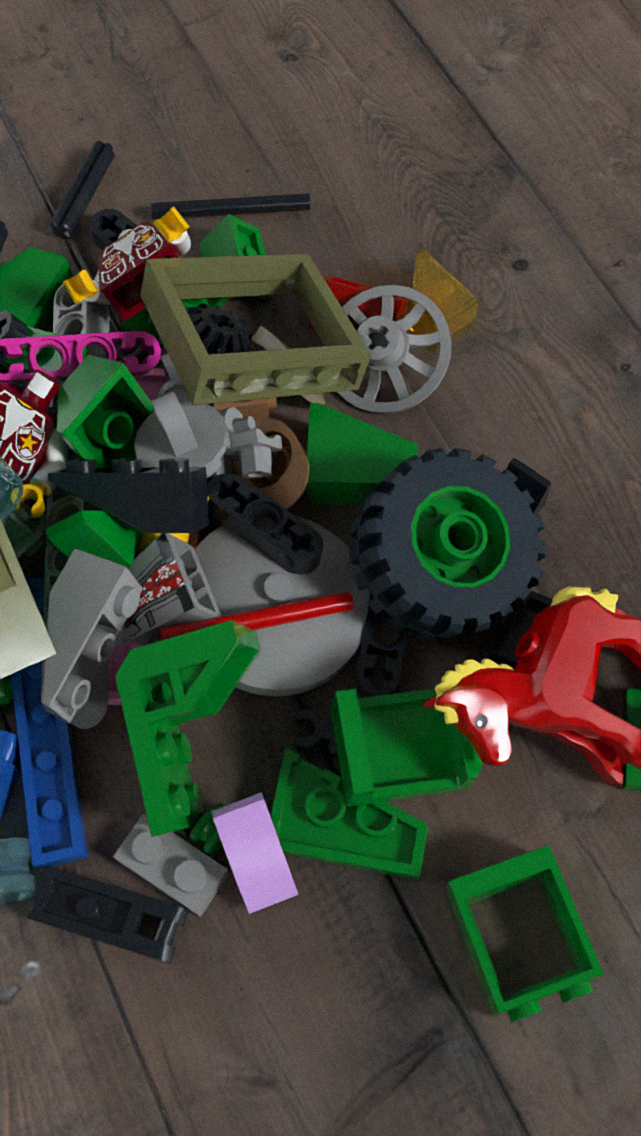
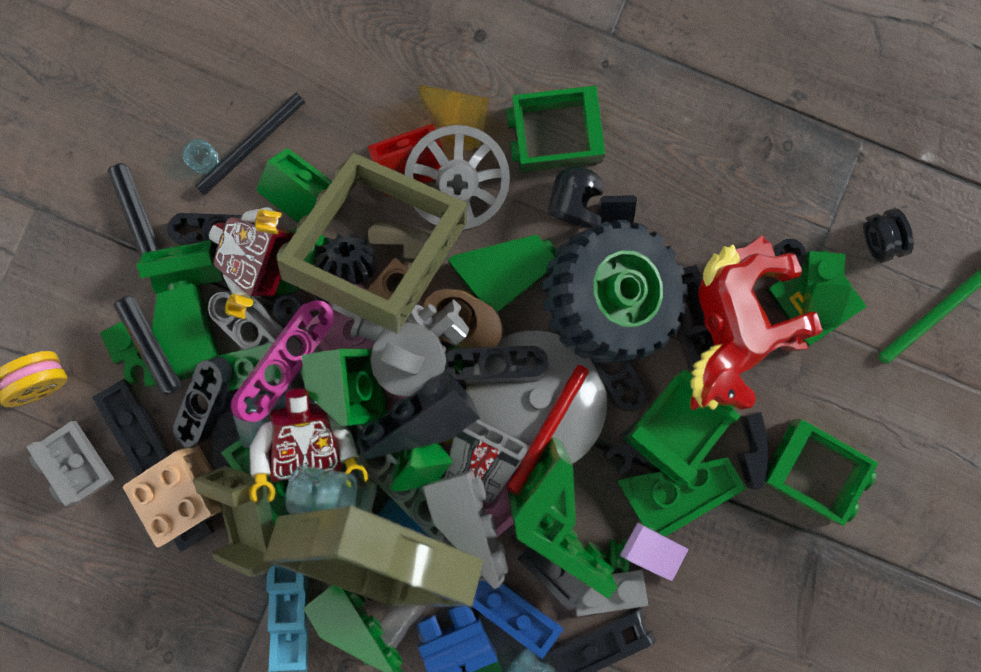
camera: 45 degrees left, 20 degrees up
(70, 240) = (180, 263): none -> green panel
(125, 802) = (558, 581): none -> black plate
(178, 177) = (192, 149): none -> clear light blue bush
(458, 850) = (754, 461): none -> black slope
(494, 434) = (571, 195): none -> black helmet
(537, 349) = (582, 96): none -> green window

